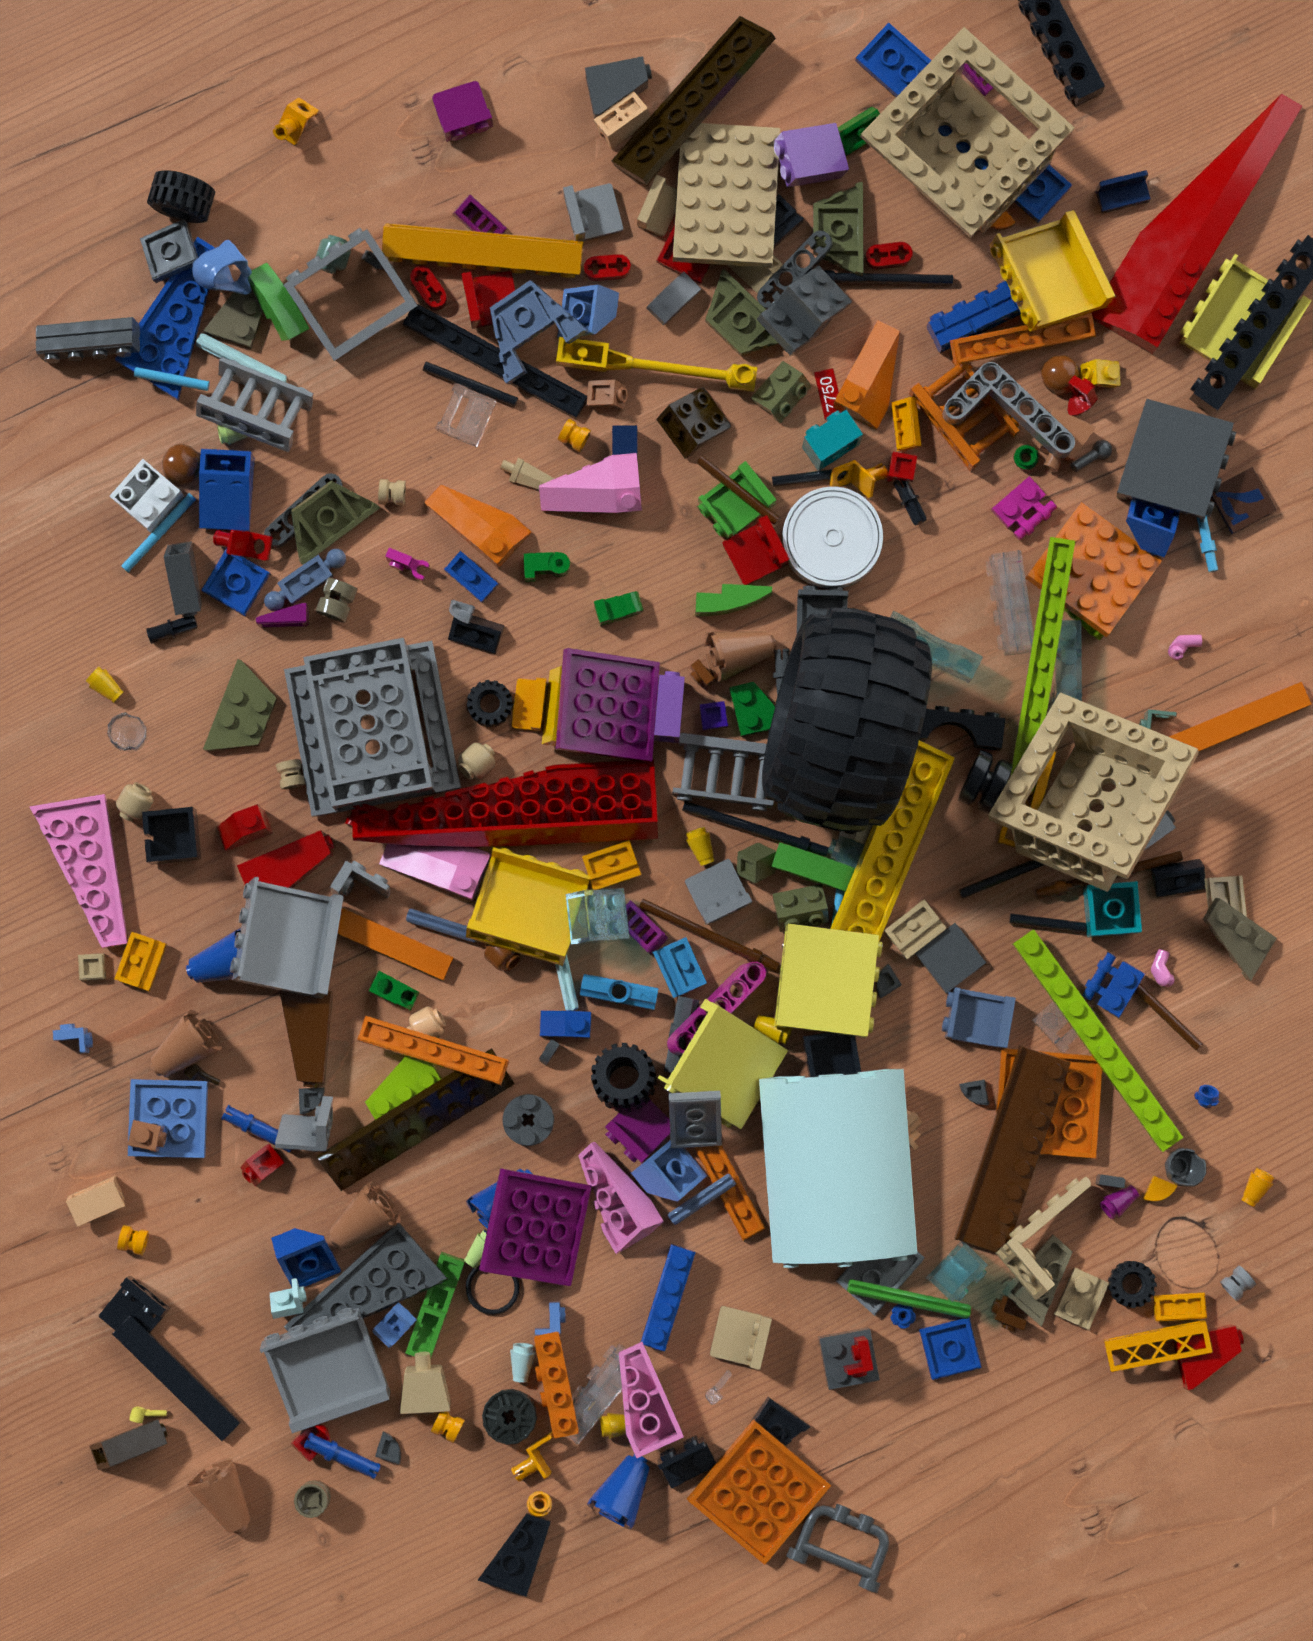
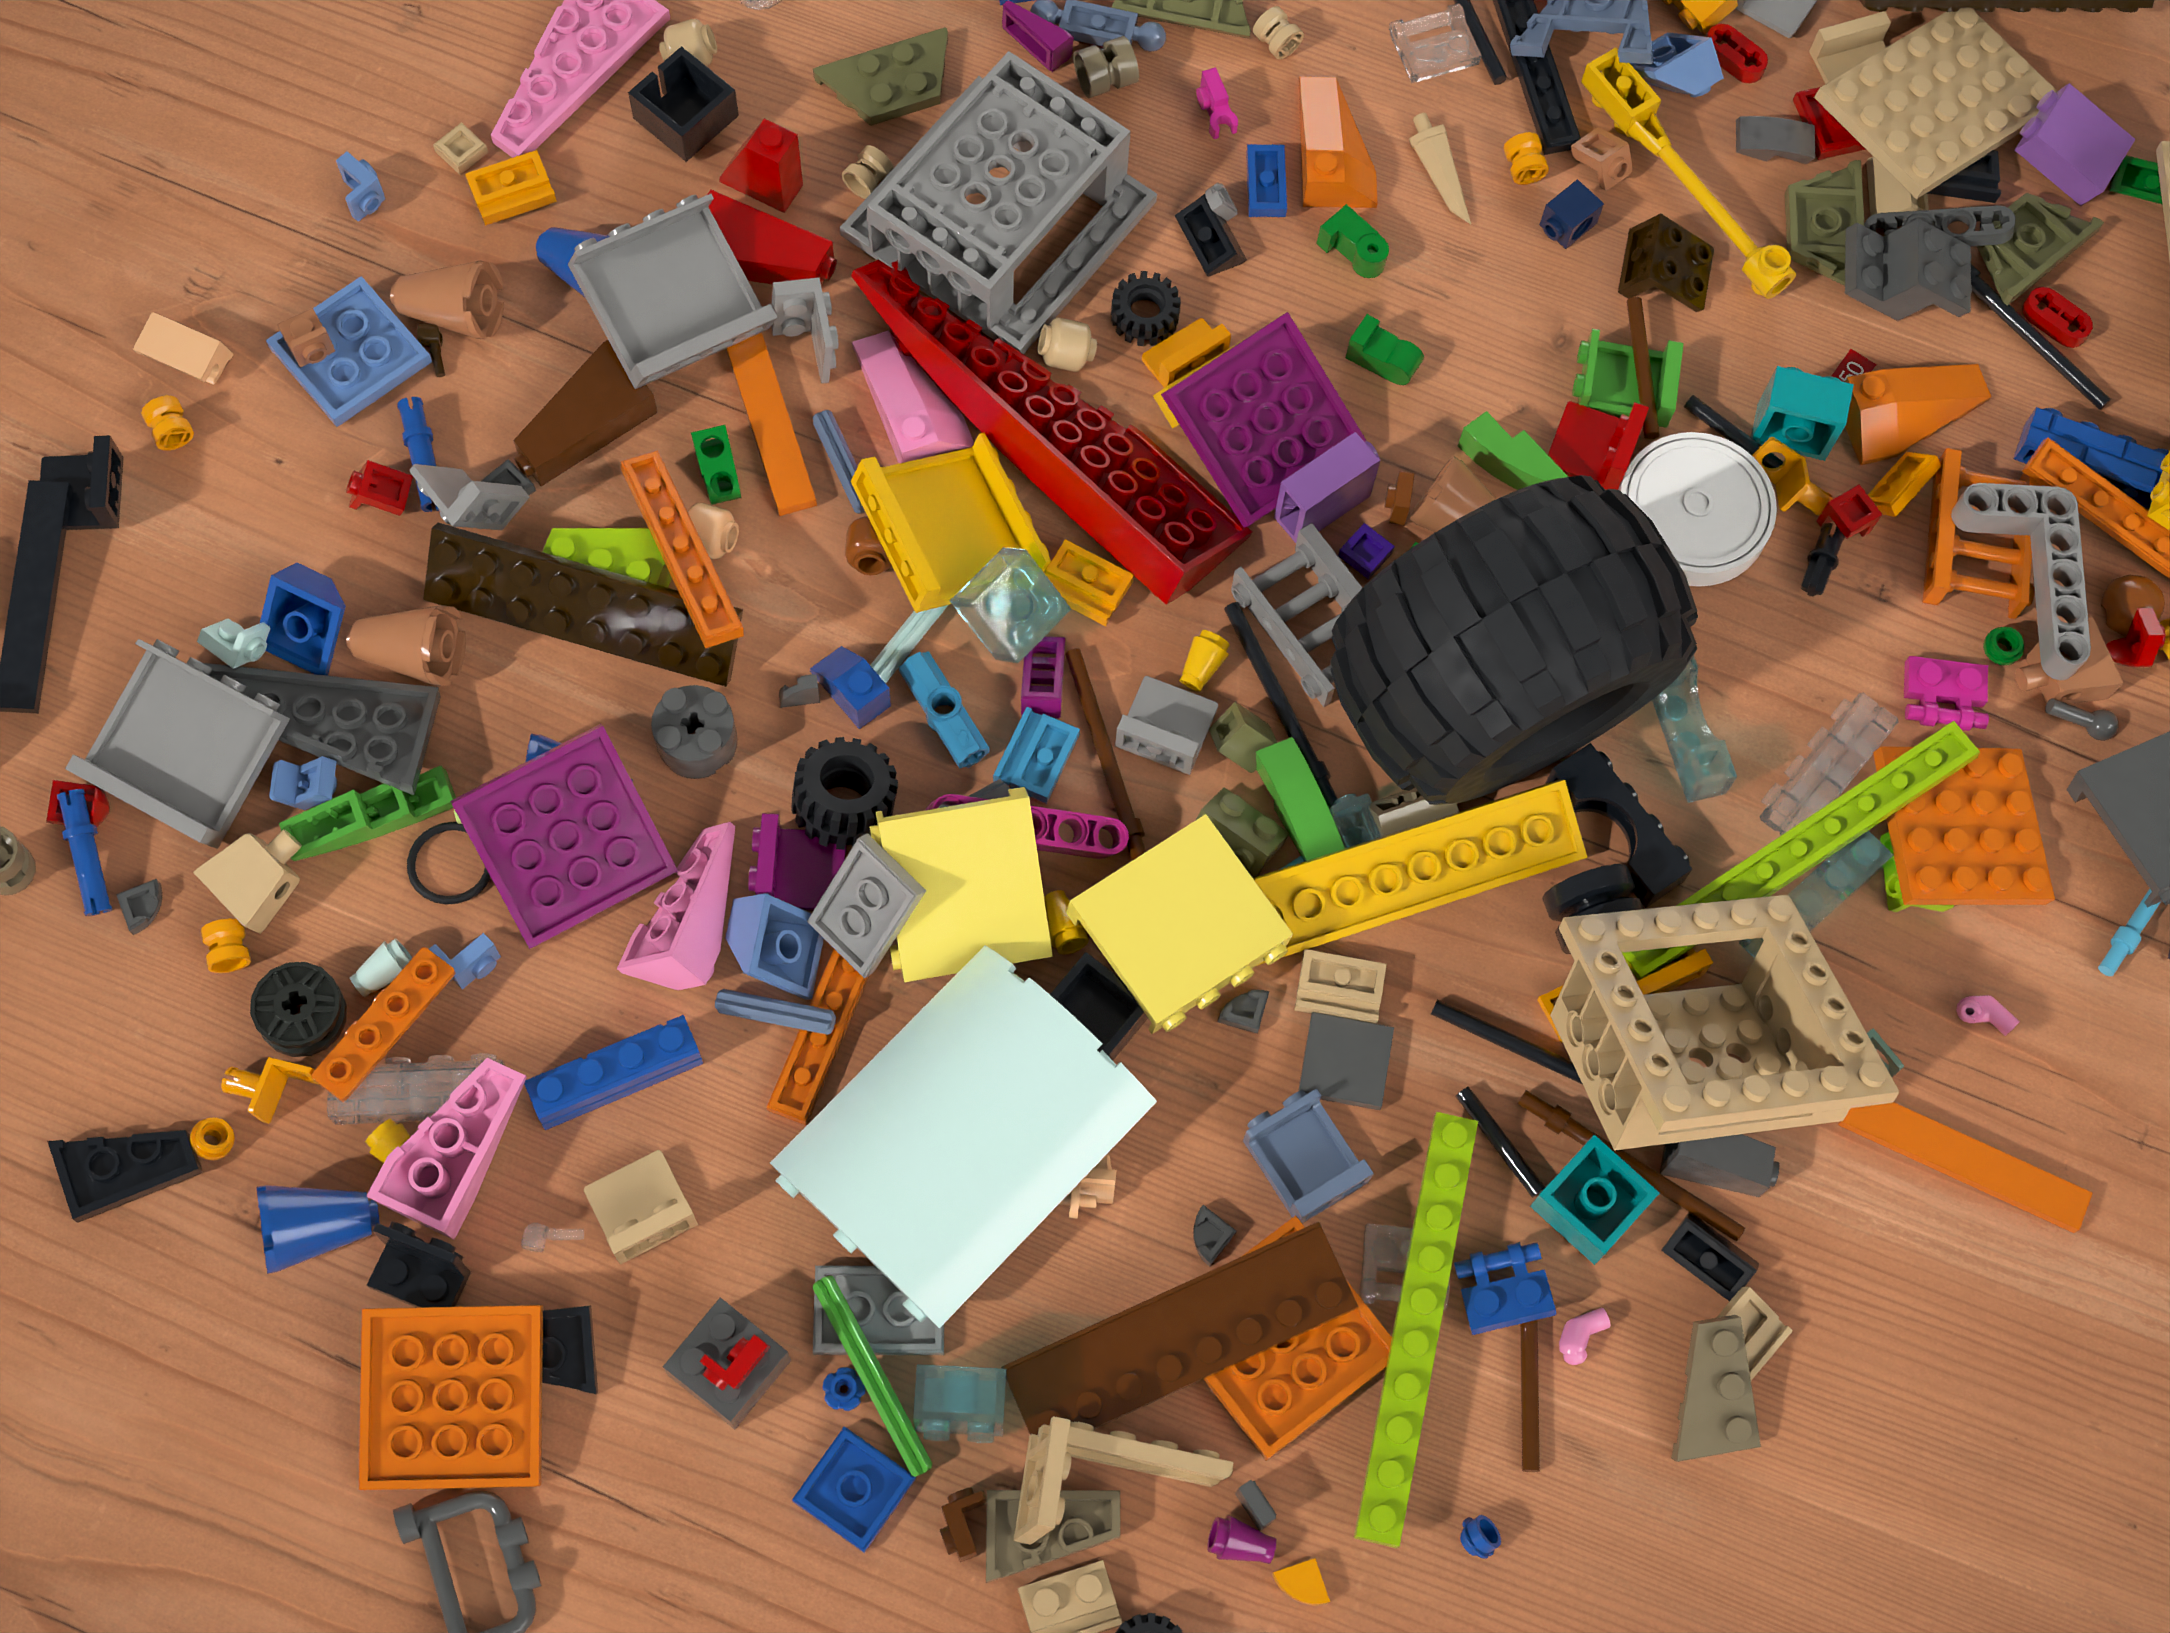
camera: 45 degrees right, 15 degrees down
(602, 487) = (1499, 223): bright pink wedge -> none
(782, 391) = (1796, 329): olive bracket -> none
(1152, 526) = (2082, 850): blue slope -> none
(1185, 1167) = (1362, 1588): dark grey hair -> none

